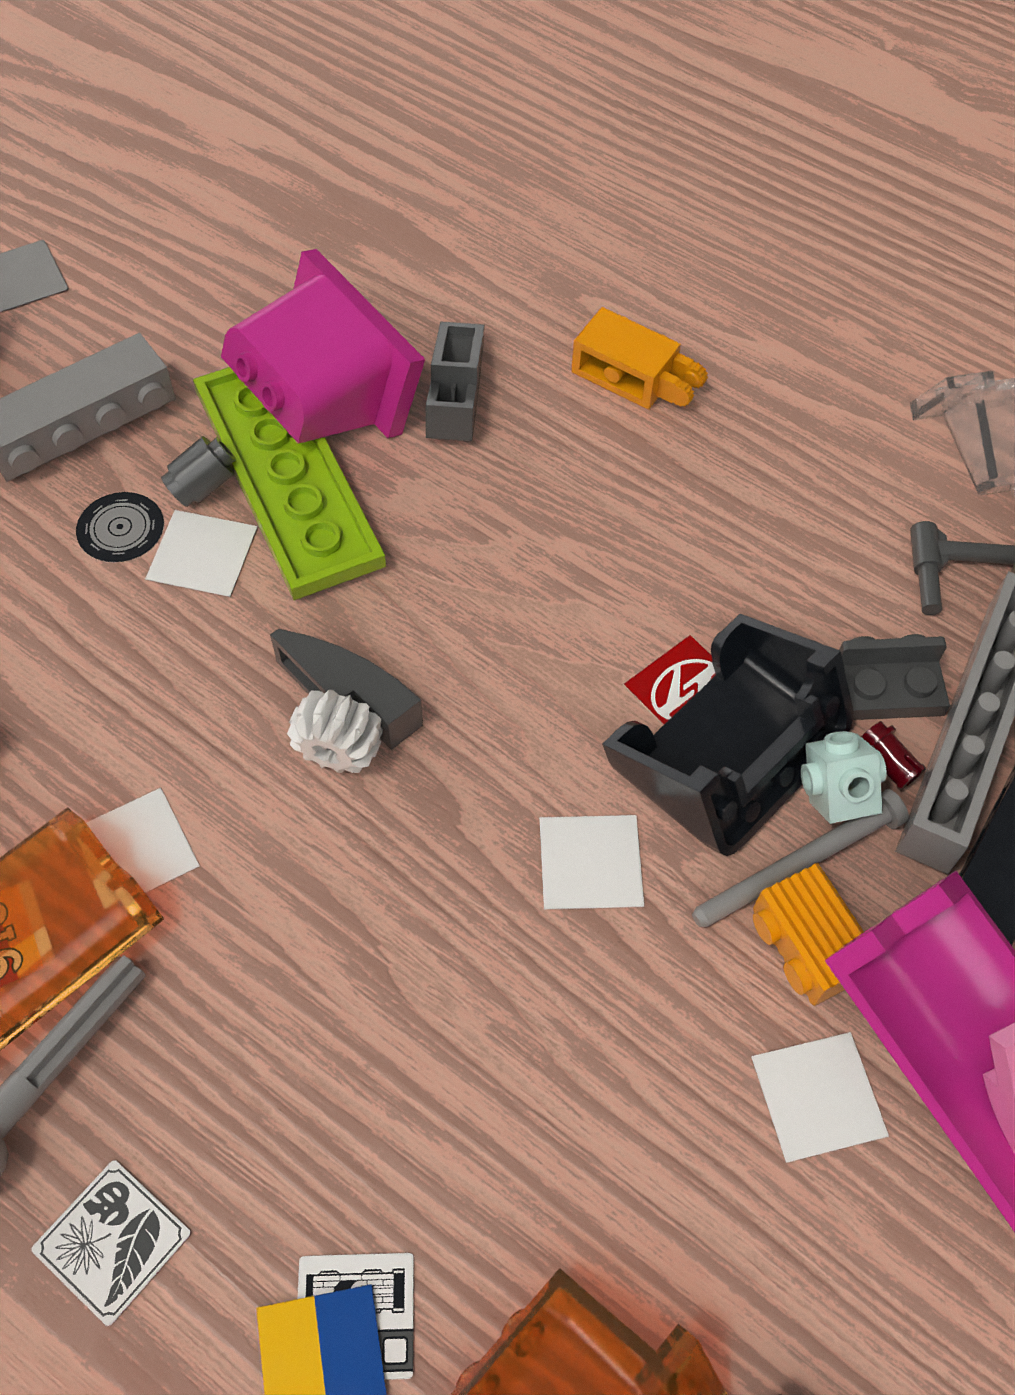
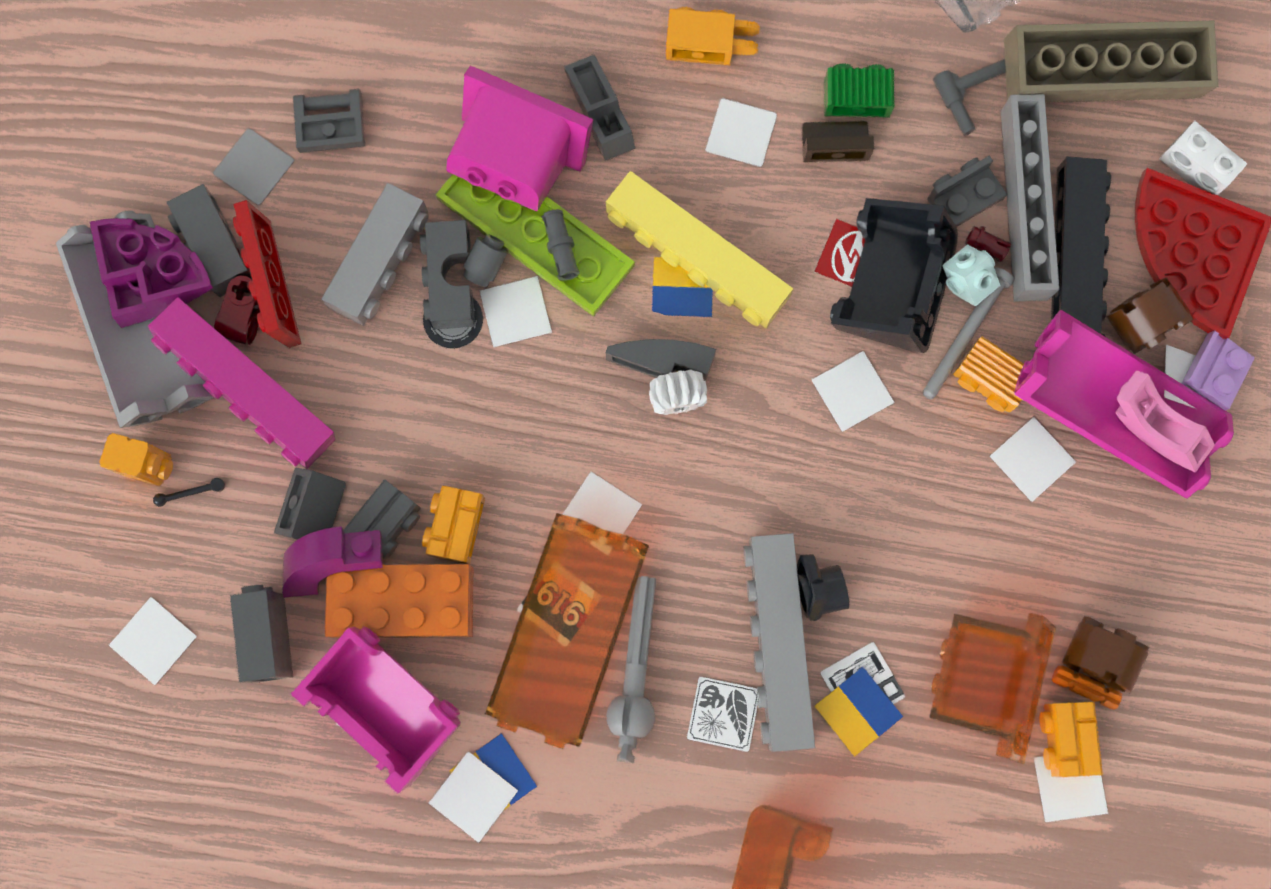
camera: 25 degrees left, 20 degrees up
(120, 495) = (445, 246): none -> dark grey arch
(131, 265) = (332, 129): none -> dark grey plate
(256, 1178) = (780, 642): none -> light grey brick
(299, 489) = (560, 245): none -> dark grey pin
(370, 1115) = (821, 589): none -> black piece
(434, 622) = (677, 294): none -> blue sticker
(479, 586) = (698, 250): none -> light yellow brick
(619, 484) = (741, 132): none -> white sticker
(737, 545) = (836, 141): none -> dark brown panel
(799, 497) = (859, 91): none -> green brick

